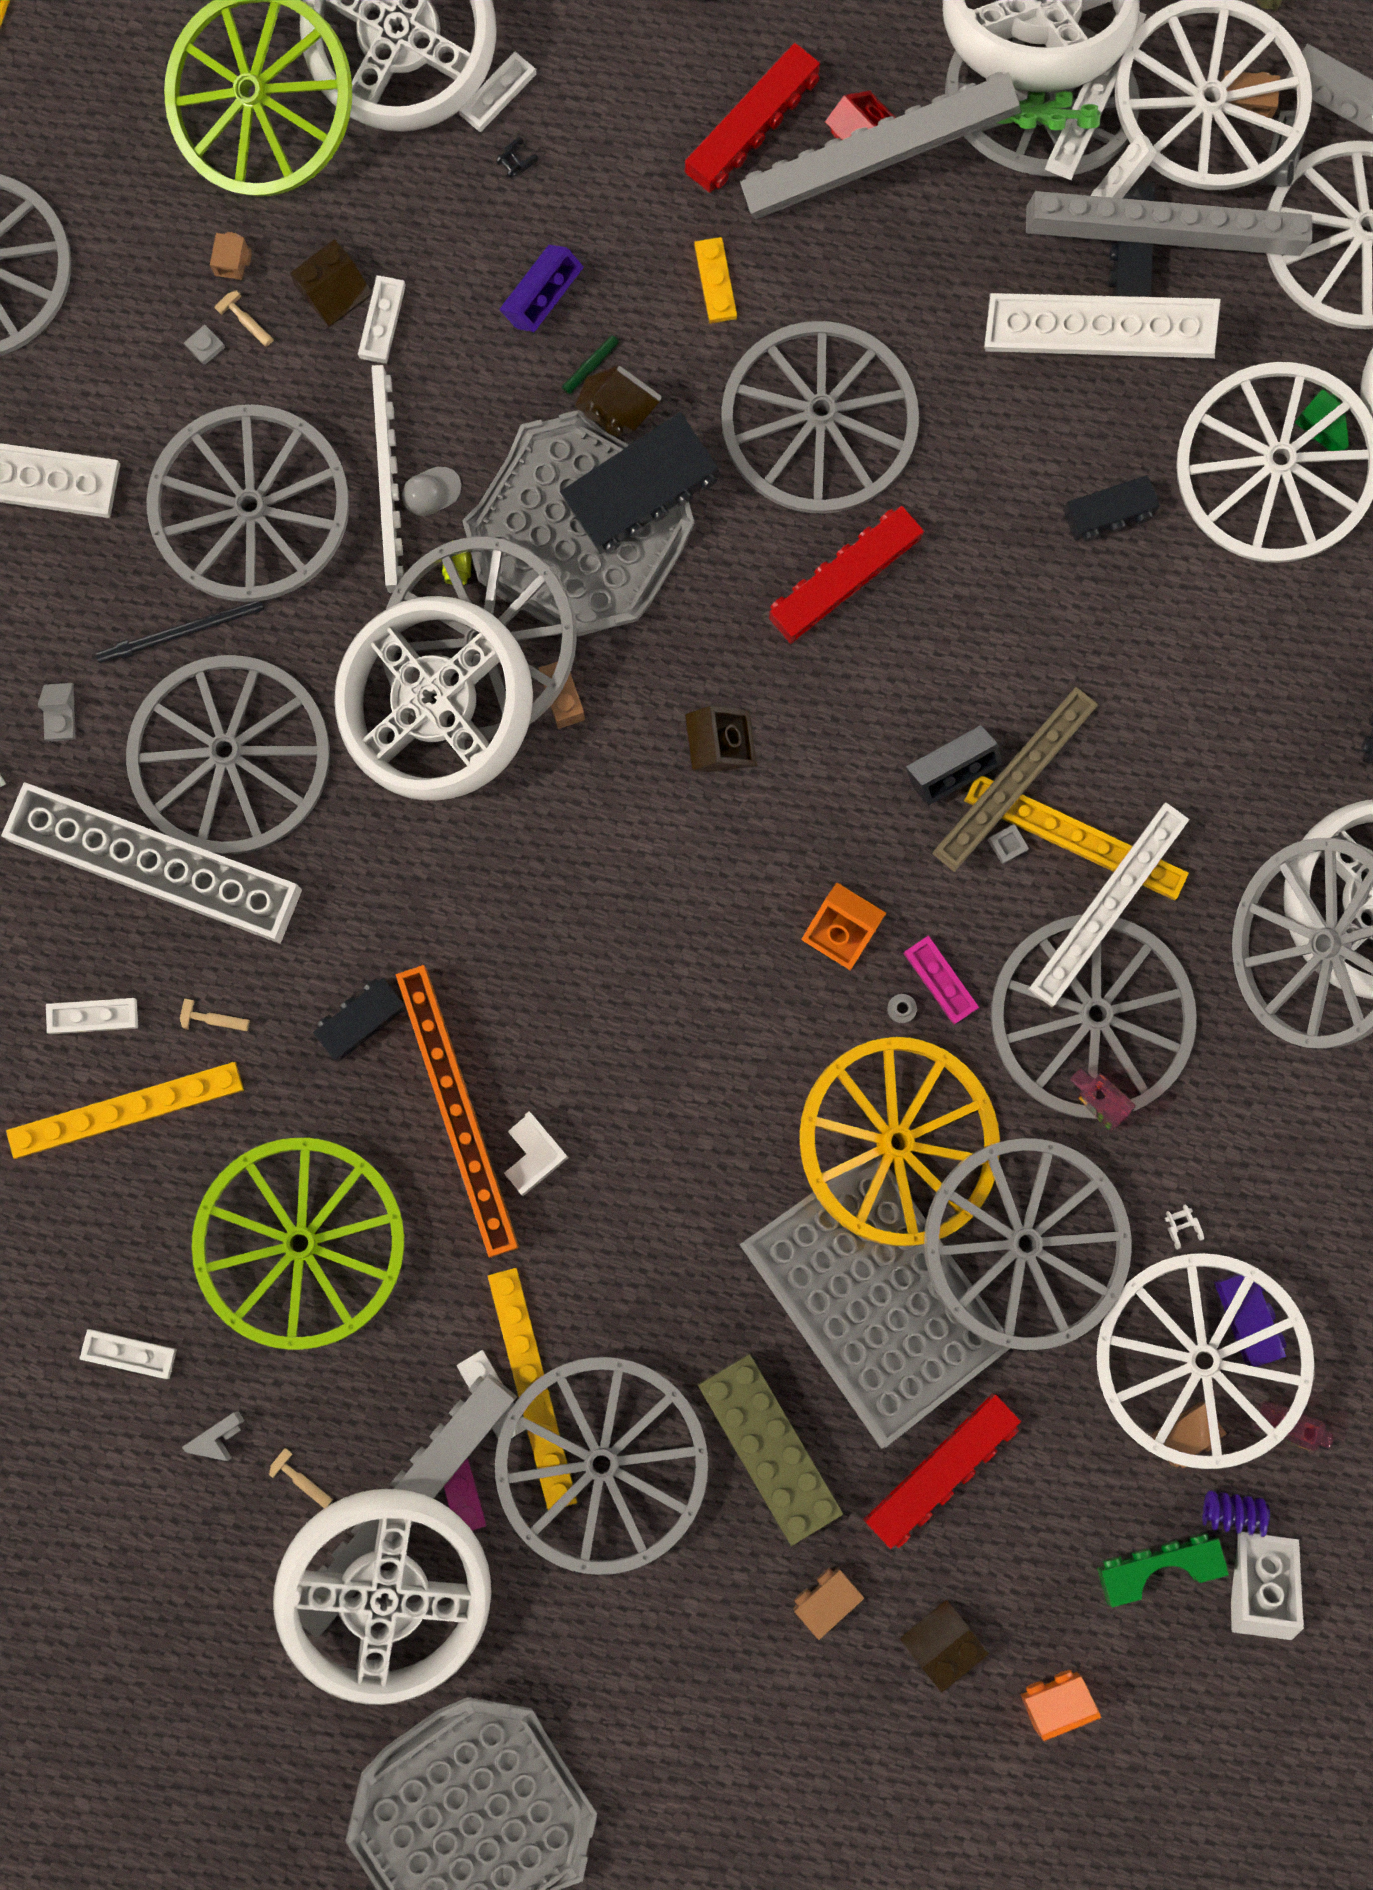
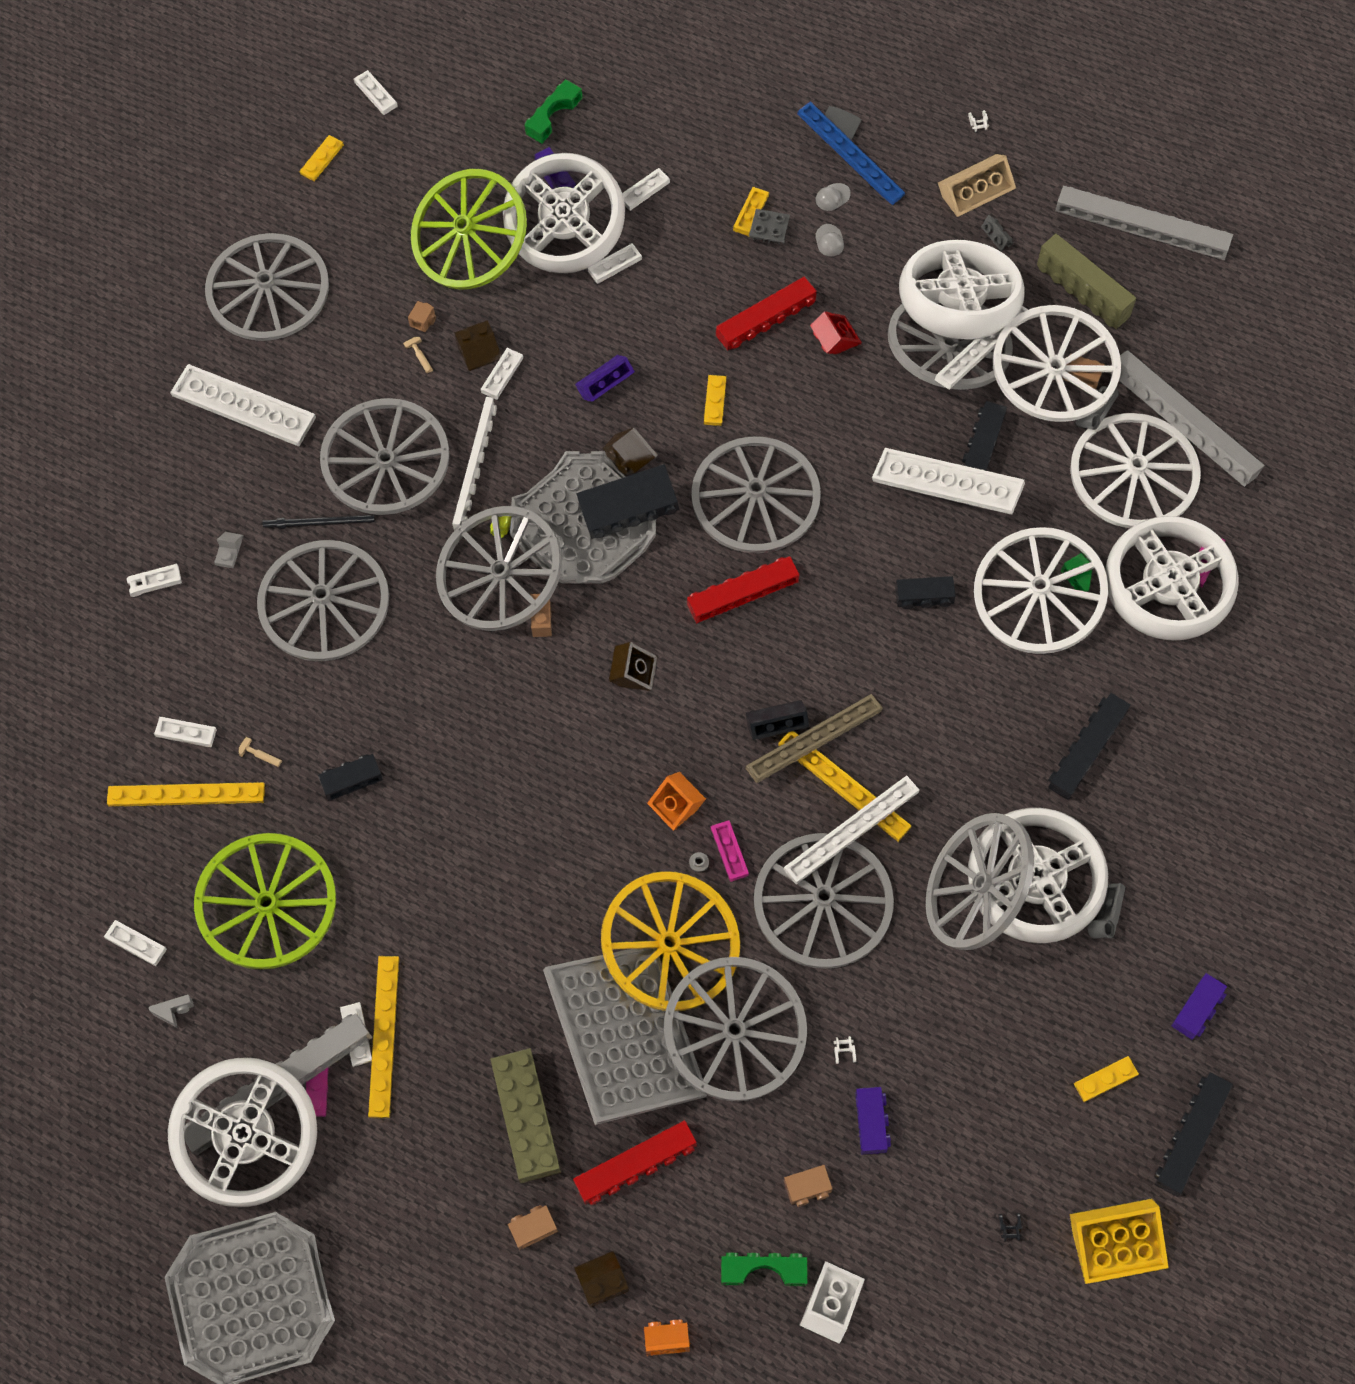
camera: 20 degrees right, 15 degrees down
(152, 862) = (255, 650): white brick -> none
(204, 345) = (390, 362): light grey plate -> none
(299, 1479) = (214, 1051): tan piece -> none
(383, 638) = (479, 635): white wheel -> none
(431, 491) = (500, 478): light grey cap -> none
(457, 1111) = (392, 849): orange brick -> none
(521, 164) = (616, 307): black piece -> none
(541, 1155) = (437, 891): white panel -> none
(590, 364) = (631, 424): dark green piece -> none
(644, 1554) = (365, 1046): light grey wheel -> none
(881, 146) = (837, 344): light grey brick -> none
(1008, 844) = (798, 778): light grey plate -> none
(1051, 114) = (945, 348): bright green plant -> none
(1110, 1110) = (812, 950): clear pink torso -> none
(1127, 169) = (985, 397): white plate -> none
(1168, 223) = (1007, 431): light grey brick -> none
(1236, 1511) = (825, 1246): dark purple piece -> none
(1251, 1275) = (827, 1130): white wheel -> none
(1306, 1433) = (873, 1194): clear pink torso -> none

